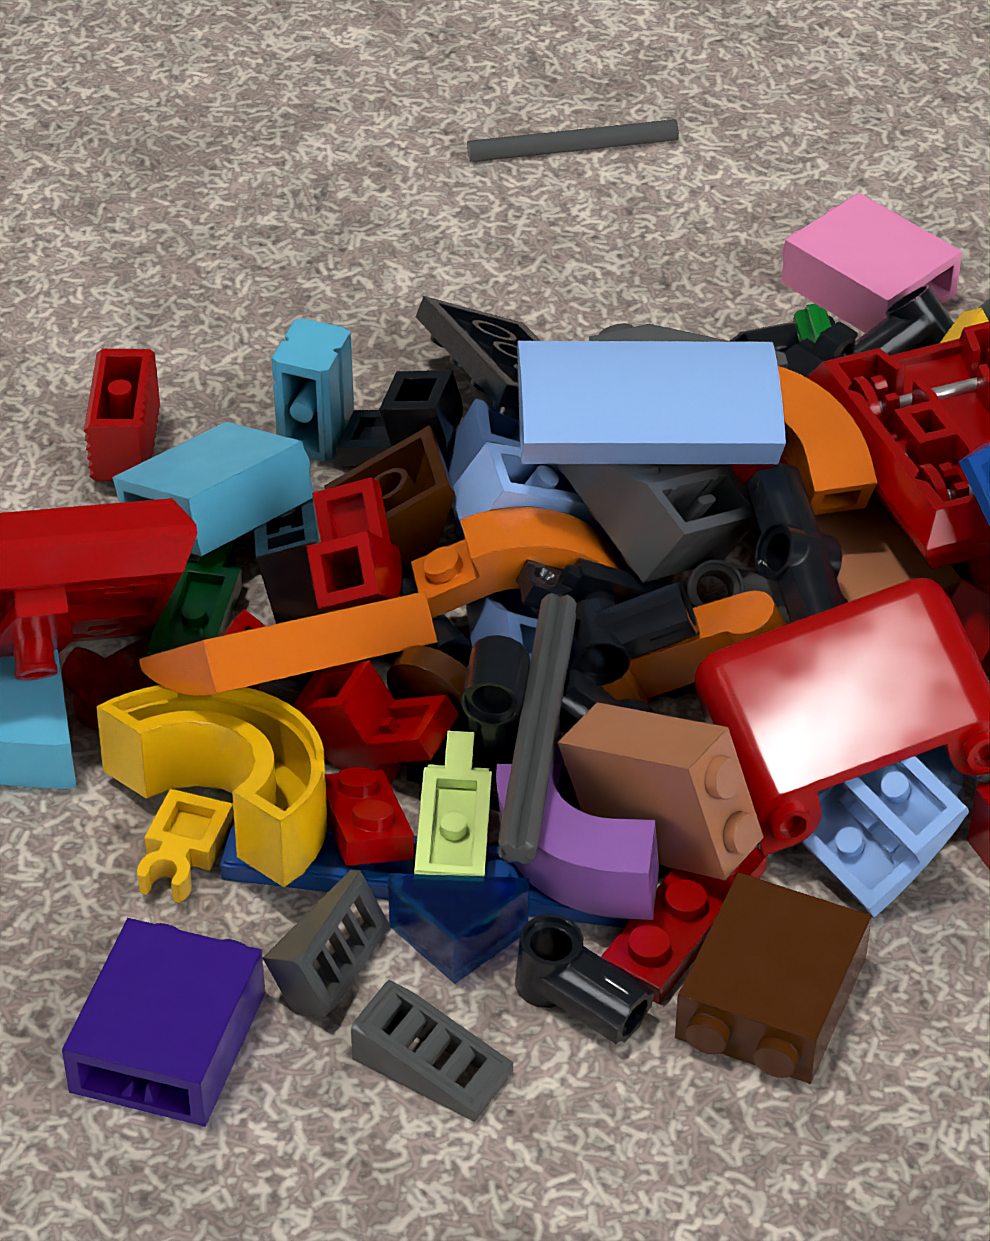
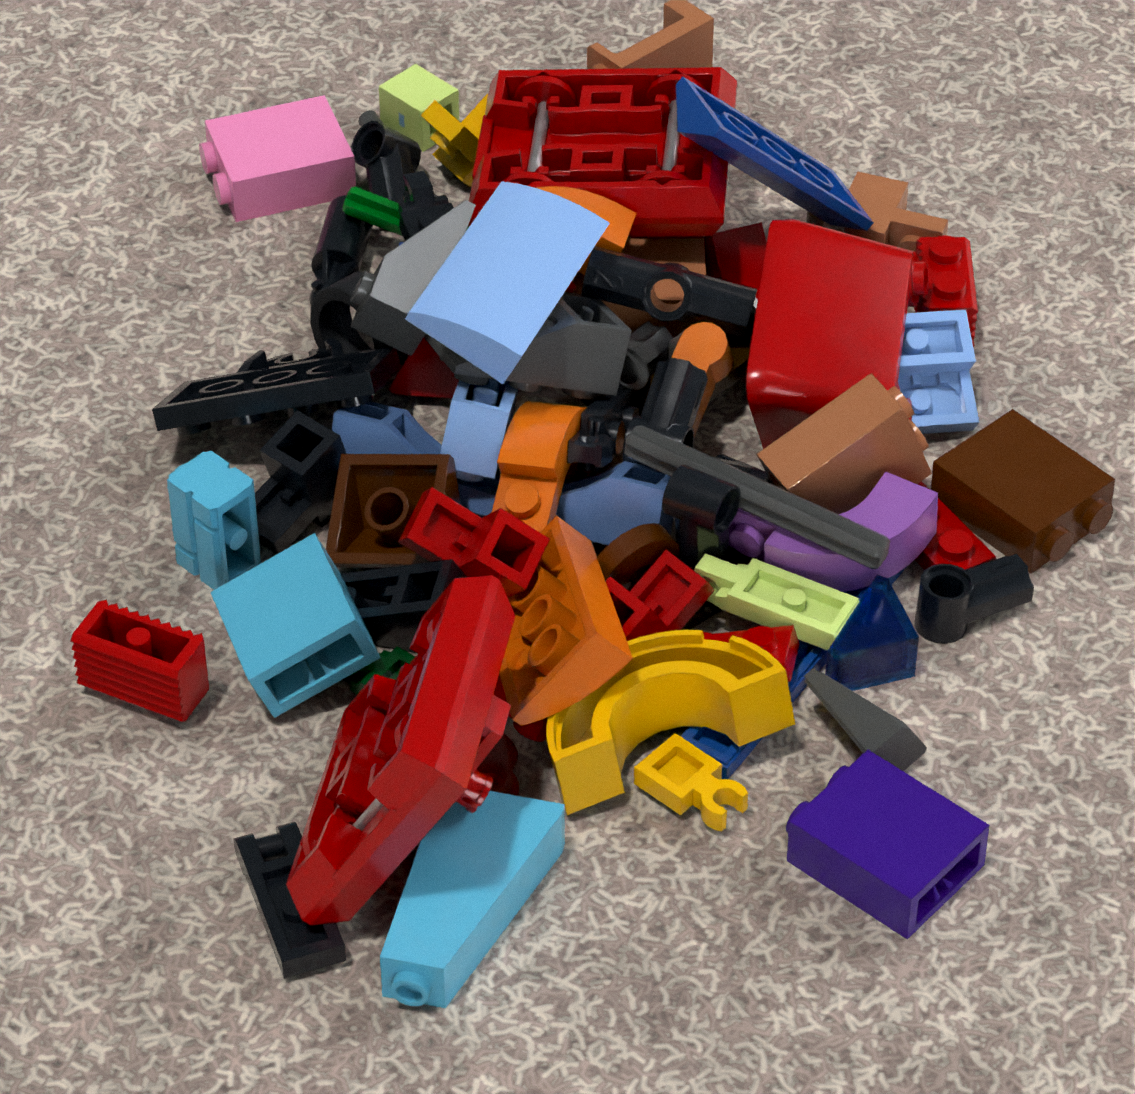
camera: 65 degrees left, 0 degrees up
(415, 1018) = (968, 732): dark grey slope -> none

